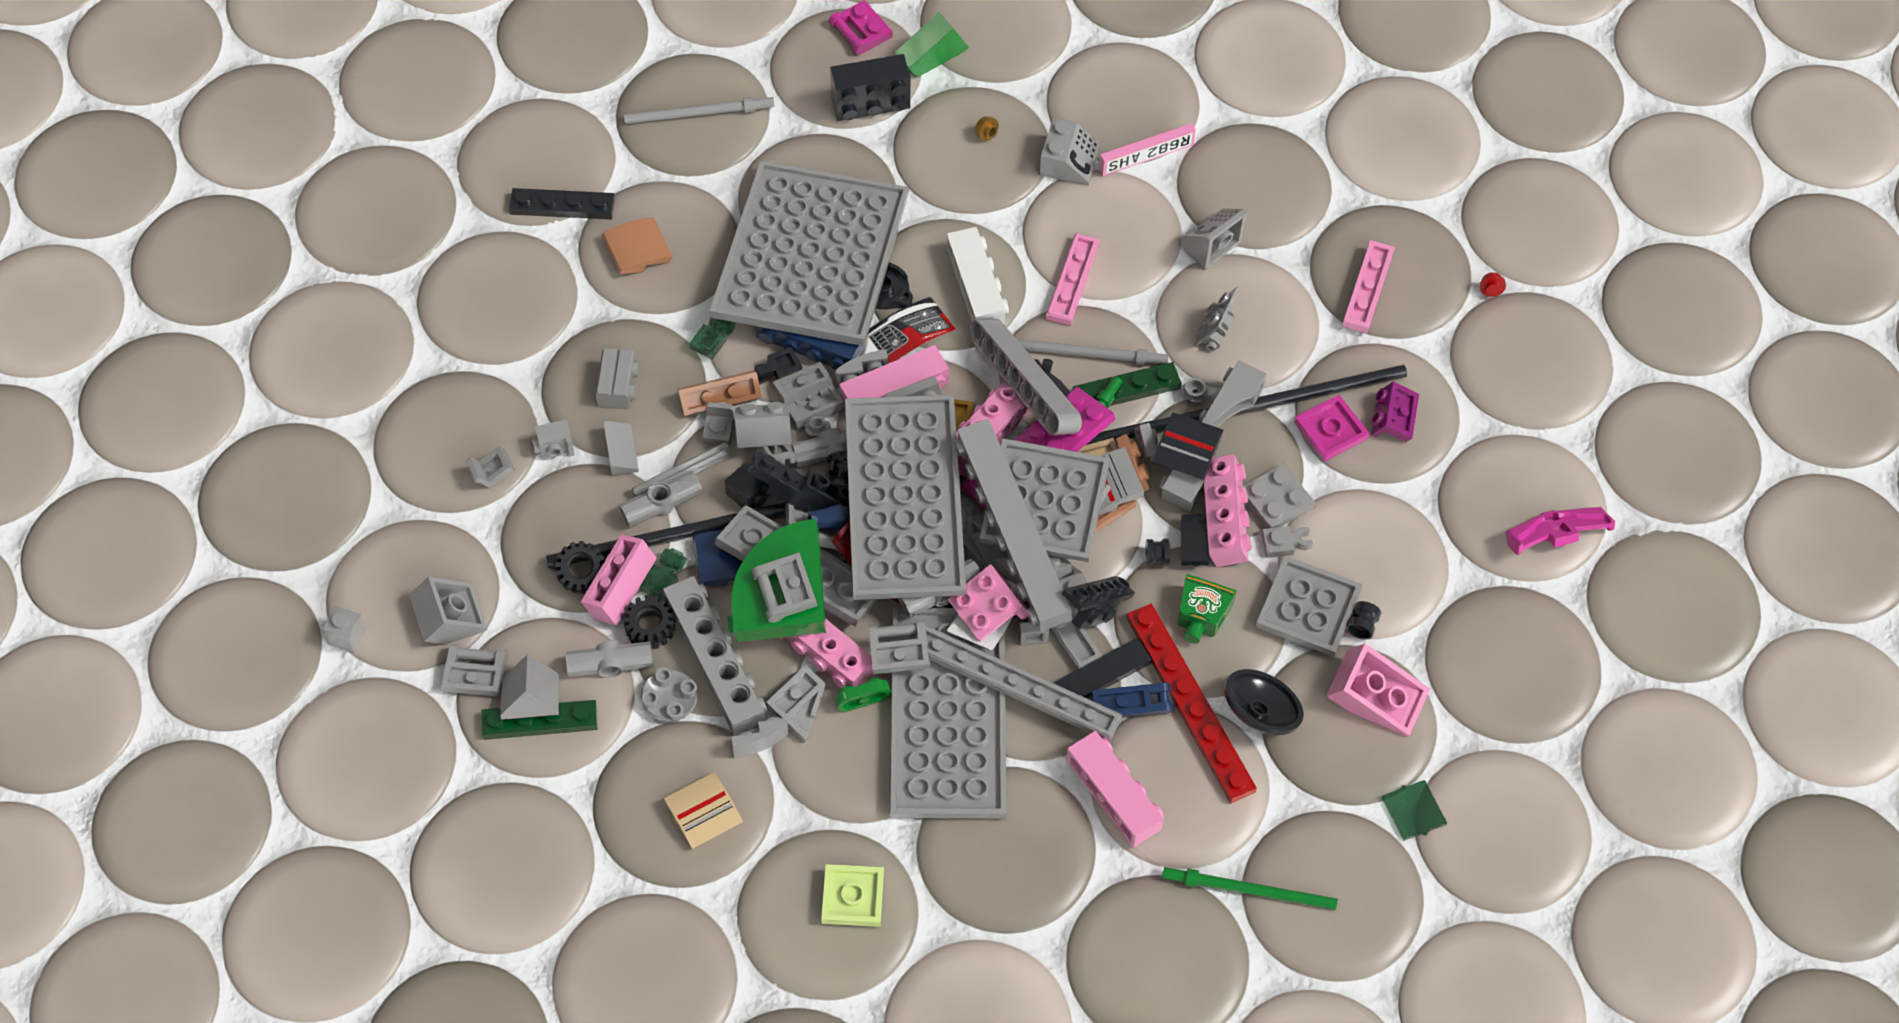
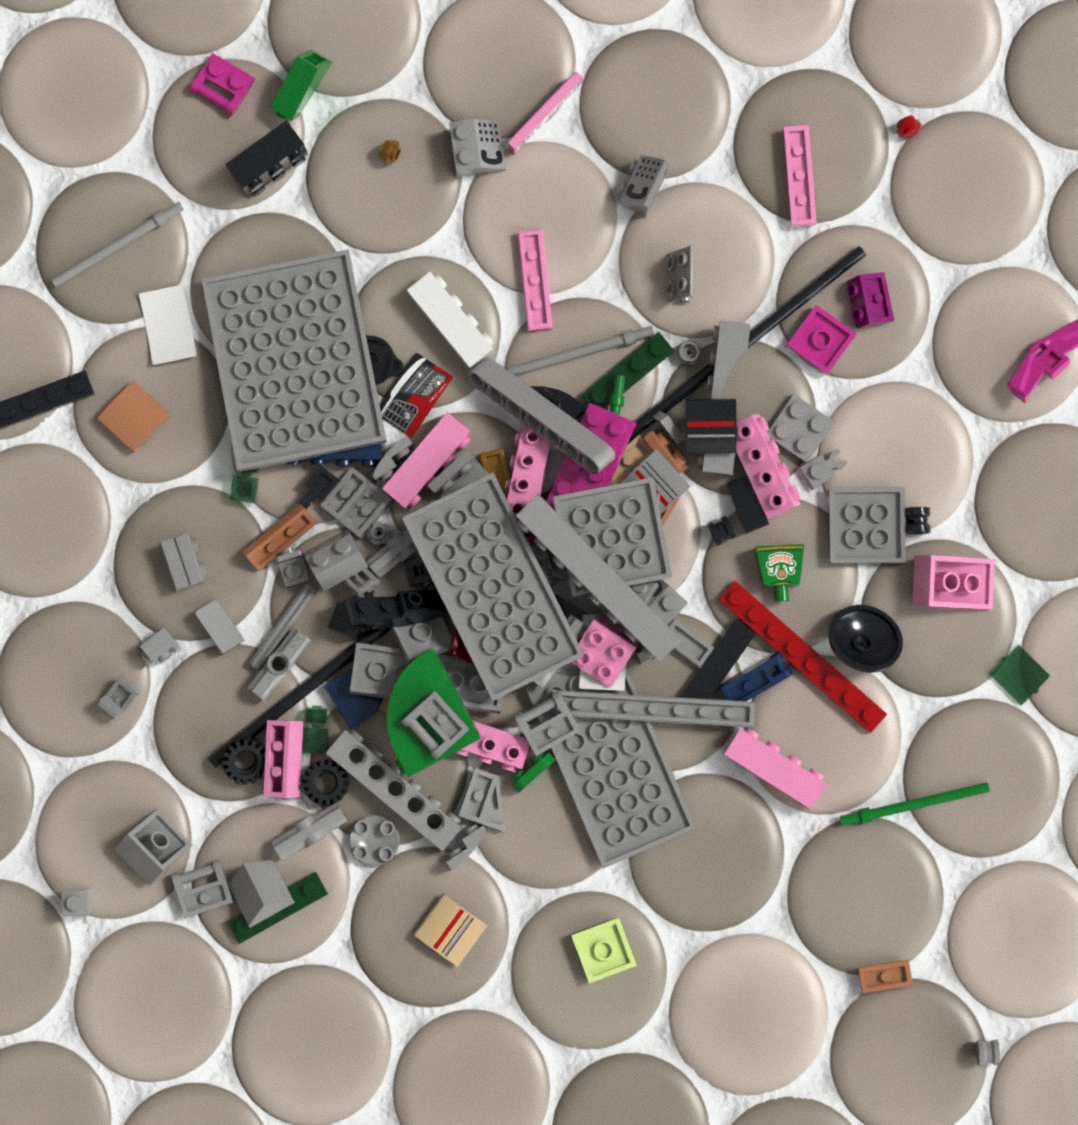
camera: 20 degrees left, 25 degrees up
(710, 187) = (168, 324): none -> white sticker
(831, 517) = (436, 628): dark blue cone -> none
(1097, 600) = (693, 604): black bracket -> none

